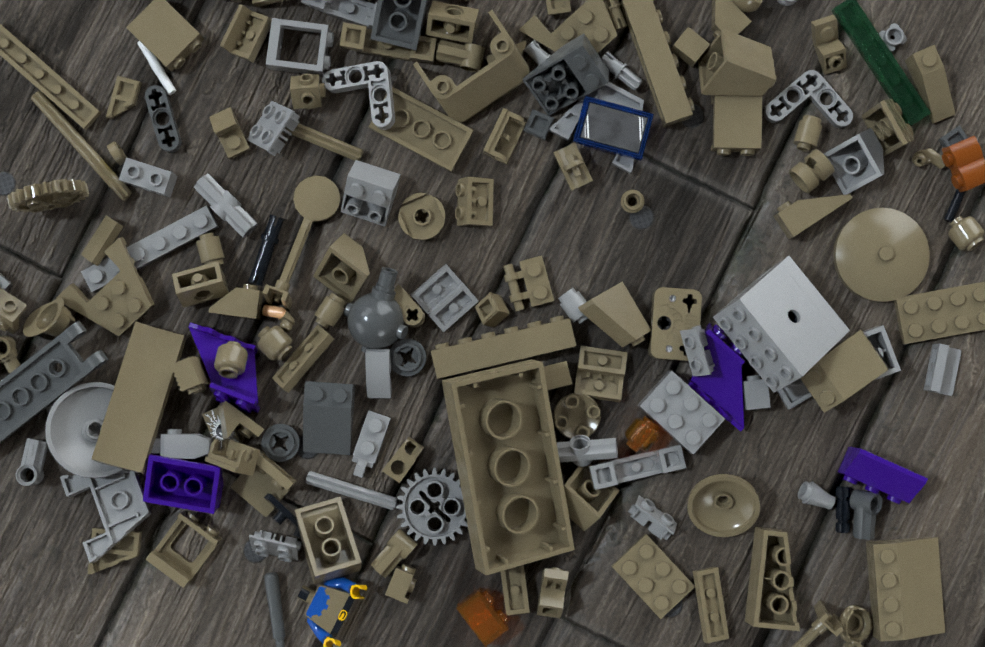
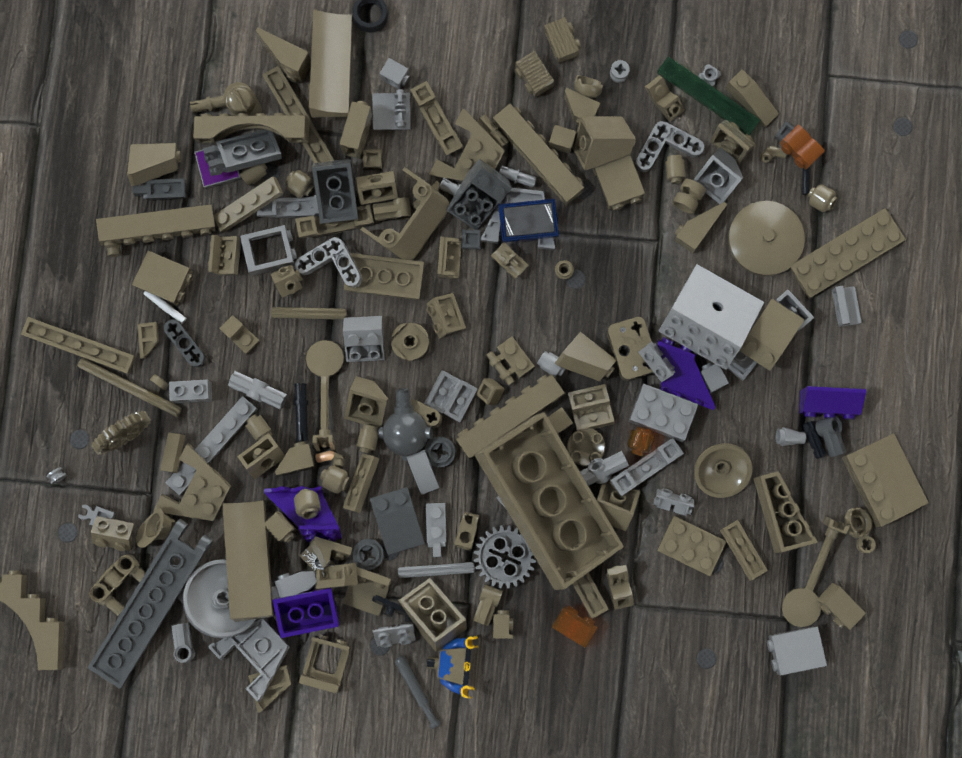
camera: 20 degrees left, 5 degrees down
(270, 126) = (269, 317): light grey hinge -> none

